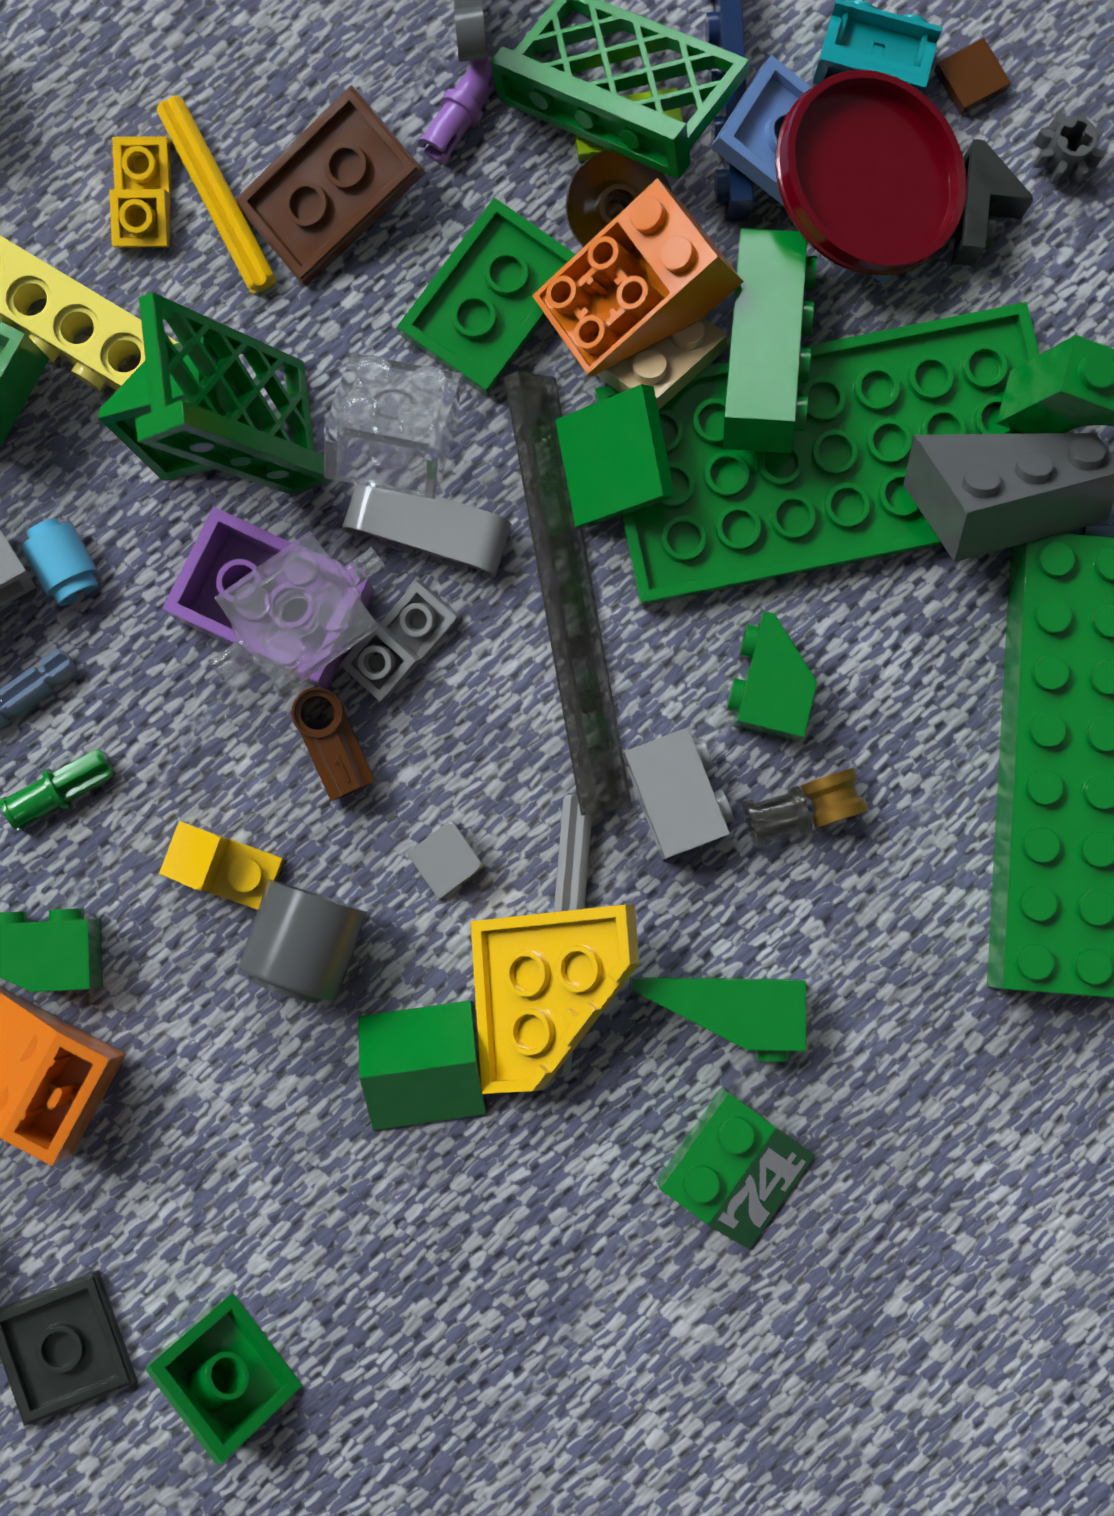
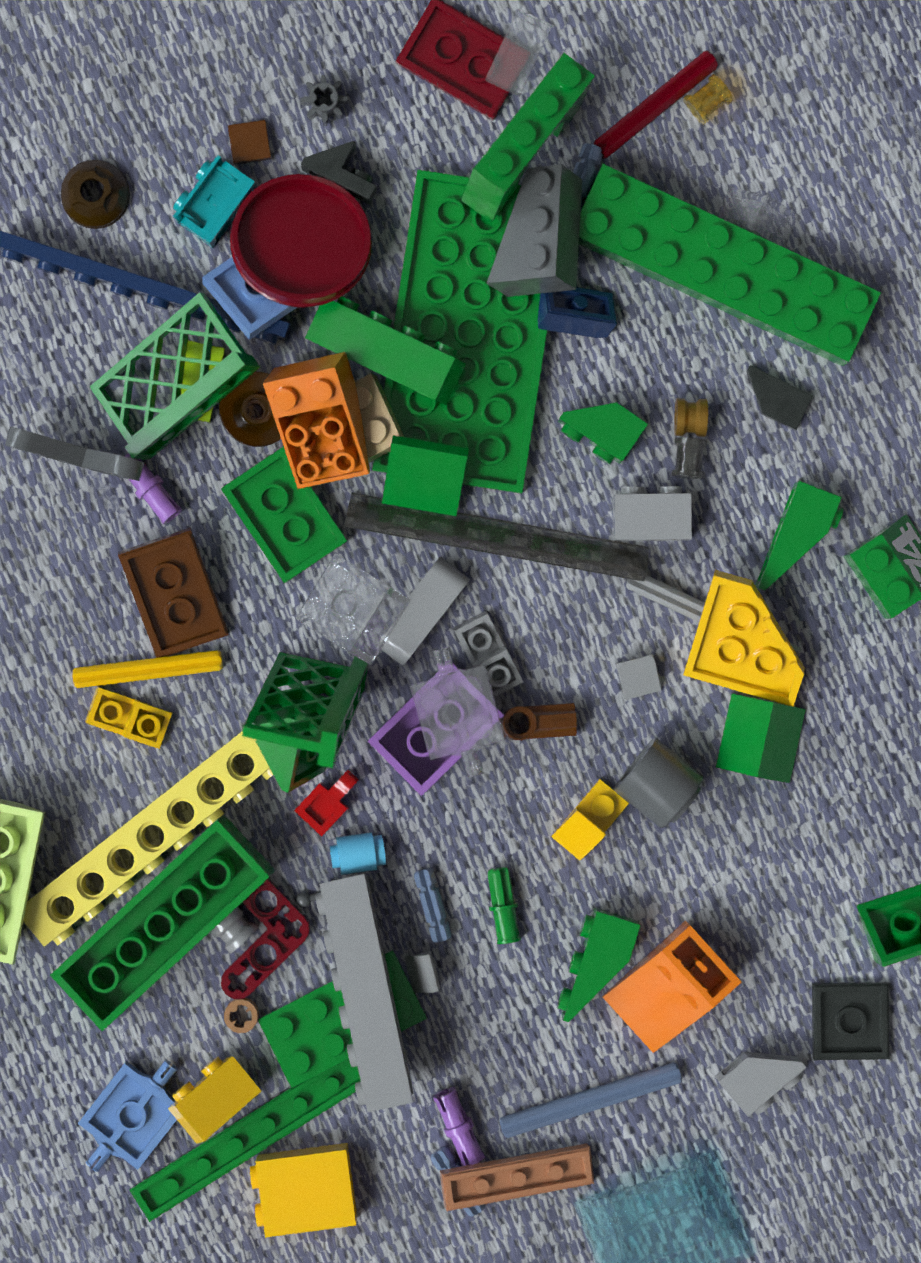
camera: 65 degrees left, 5 degrees up
(113, 492) = (324, 805): none -> red plate
(907, 912) = (778, 399): none -> pearl dark grey tile
(918, 586) = (578, 312): none -> dark blue slope

